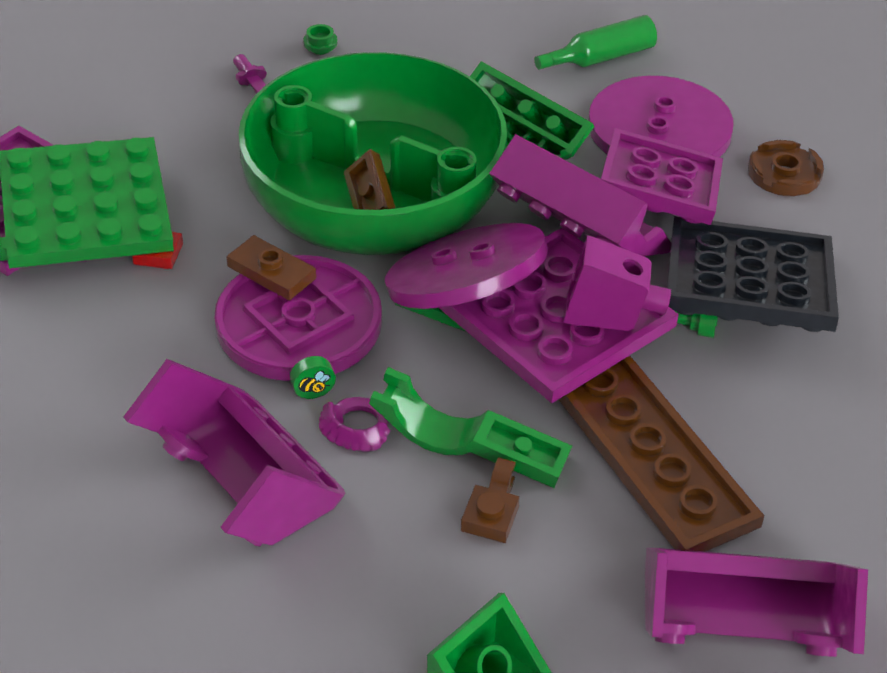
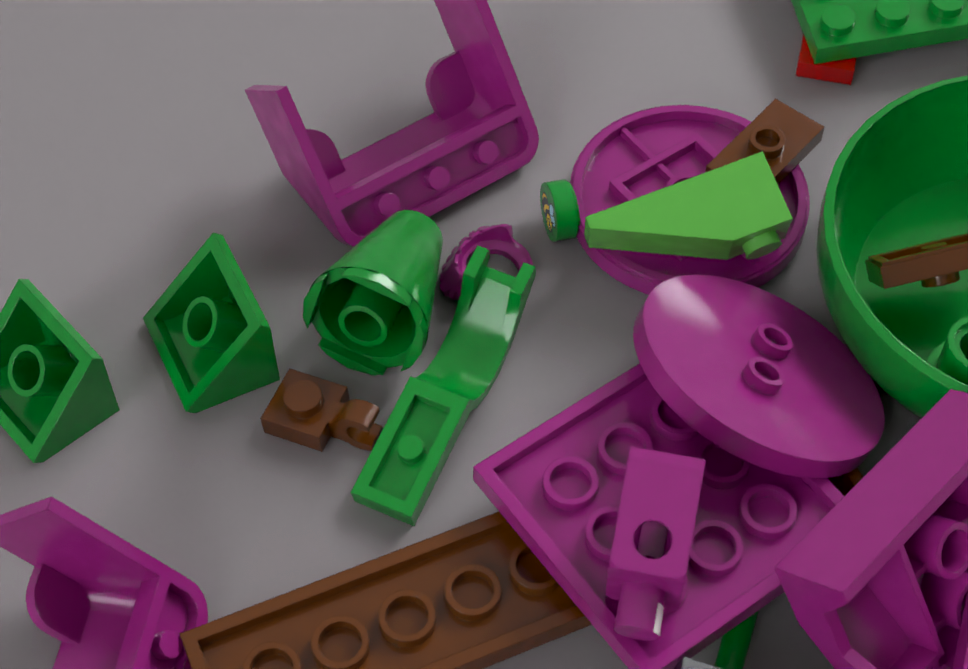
camera: 95 degrees right, 10 degrees up
(340, 281) = (704, 216): none -> bright green slope
(396, 458) = (379, 296): none -> green cone
(433, 562) = (212, 331): none -> green slope

